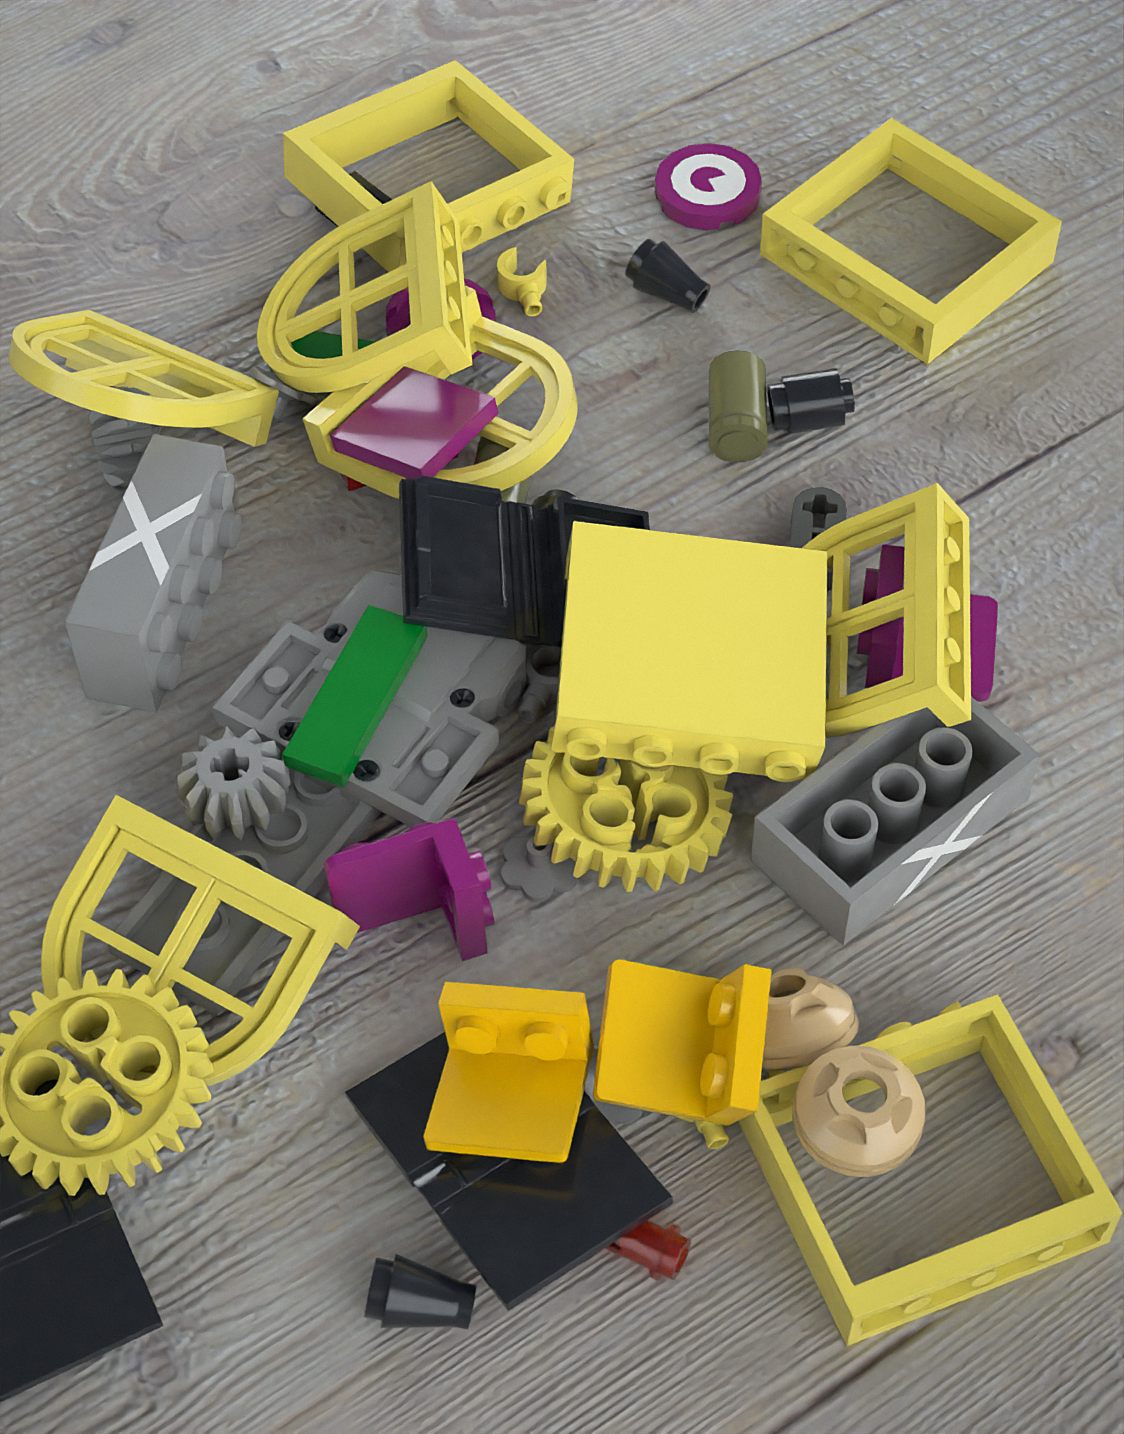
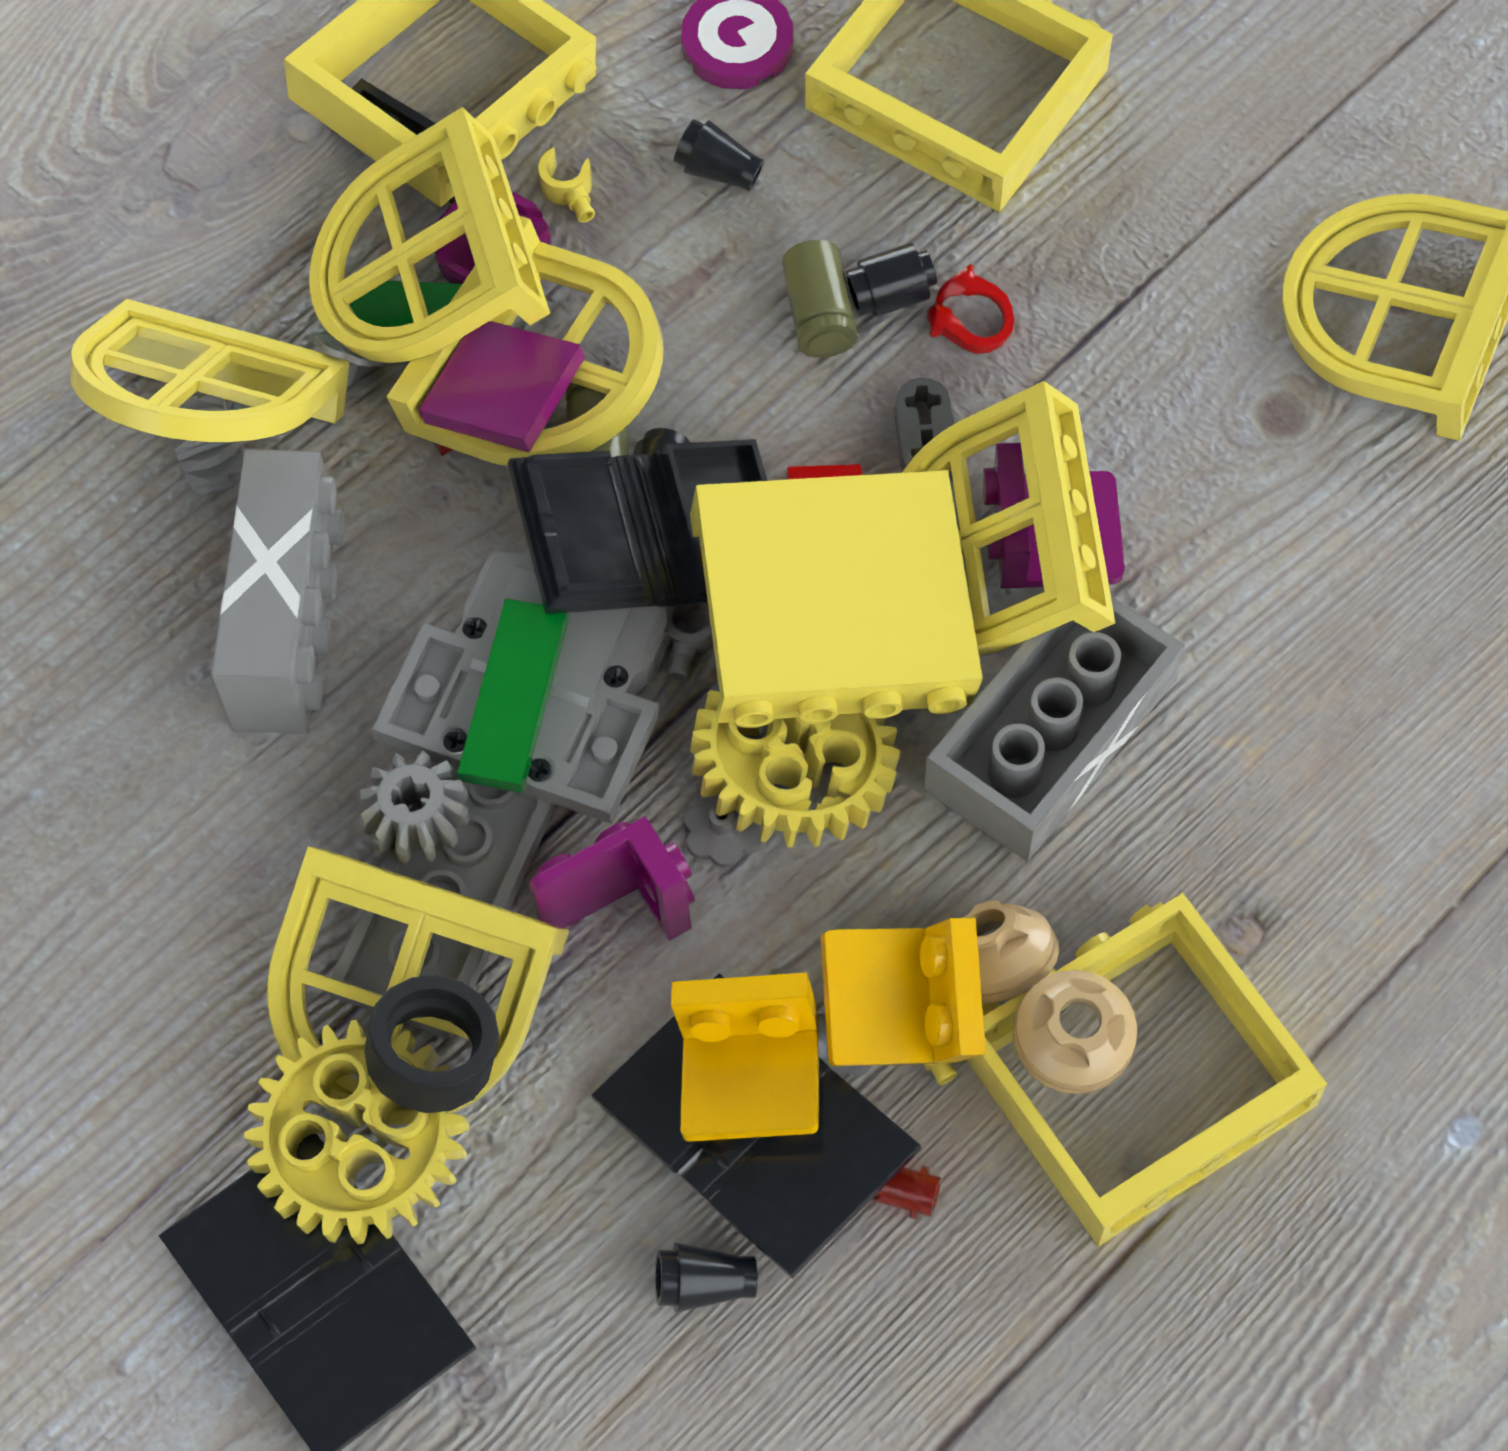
camera: 10 degrees left, 10 degrees up
(184, 1044) = (440, 999): none -> black tyre
(855, 446) = (949, 326): none -> red piece

